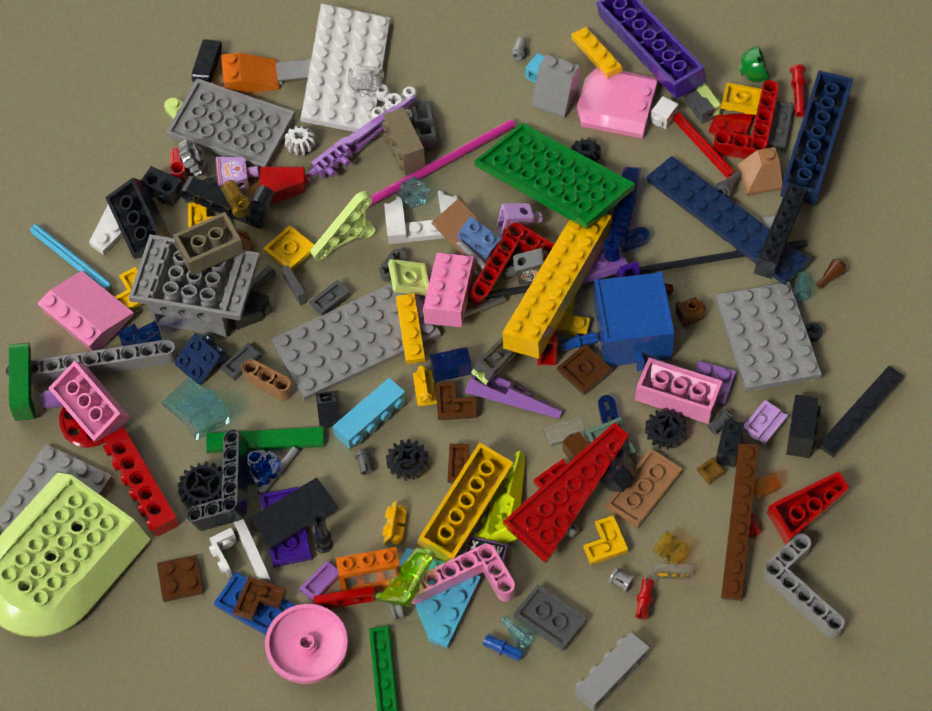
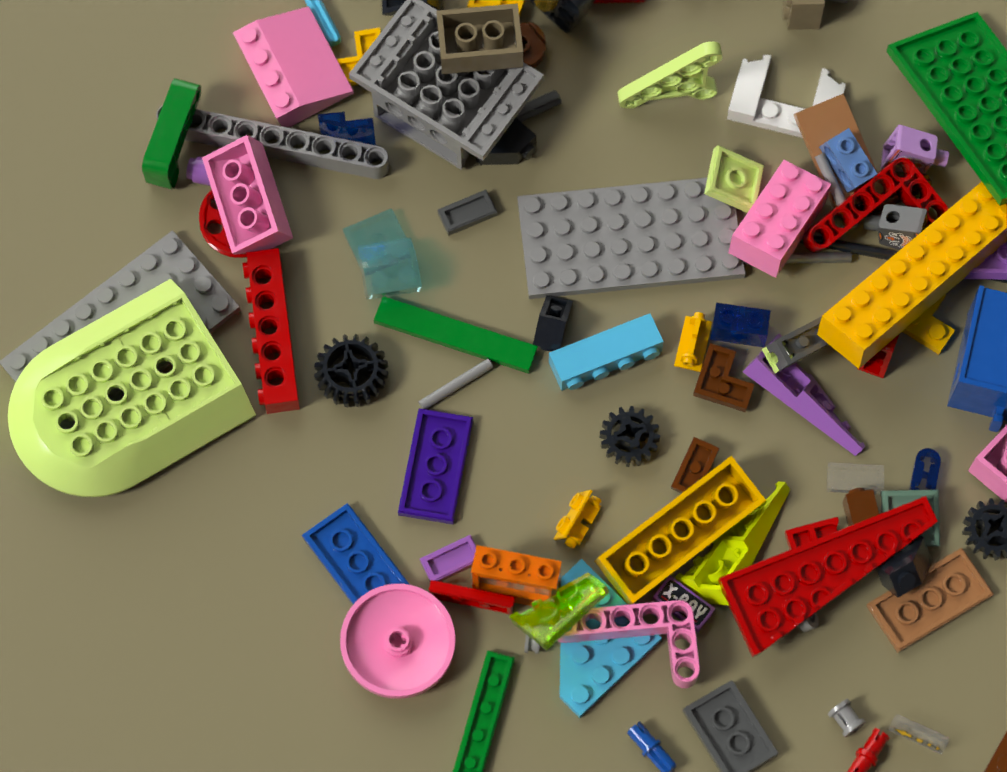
camera: 20 degrees right, 10 degrees up
(179, 578) = (273, 482): reddish brown plate -> none
(200, 357) = (417, 187): dark blue bracket -> none
(219, 542) = (347, 455): white bracket -> none
(233, 504) = (388, 387): black beam -> none
(251, 551) = (377, 481): white beam -> none
(258, 592) = (360, 545): reddish brown plate -> none
(262, 467) = (434, 372): clear blue plant -> none
(263, 372) = (488, 240): medium nougat beam -> none
(289, 248) = (591, 77): yellow plate -> none
(293, 513) = (452, 453): black tile -> none
(294, 285) = (577, 131): dark grey tile -> none
(322, 536) = (475, 501): black pin -> none
(329, 298) = (617, 167): dark grey plate -> none
(362, 456) = (572, 415): dark grey pin -> none
(384, 267) = (730, 136): dark grey beam -> none
(410, 328) = (706, 253): yellow plate -> none
(413, 192) = (788, 59): clear light blue brick -> none
(448, 158) = (842, 28): dark pink piece -> none
(520, 635) = (680, 741): clear light blue cone -> none
(578, 341) = (926, 357): blue axle -> none
(584, 369) = (917, 400): reddish brown plate -> none
(610, 543) = (850, 663): yellow plate -> none
(674, 550) = (931, 703): clear yellow wheel -> none

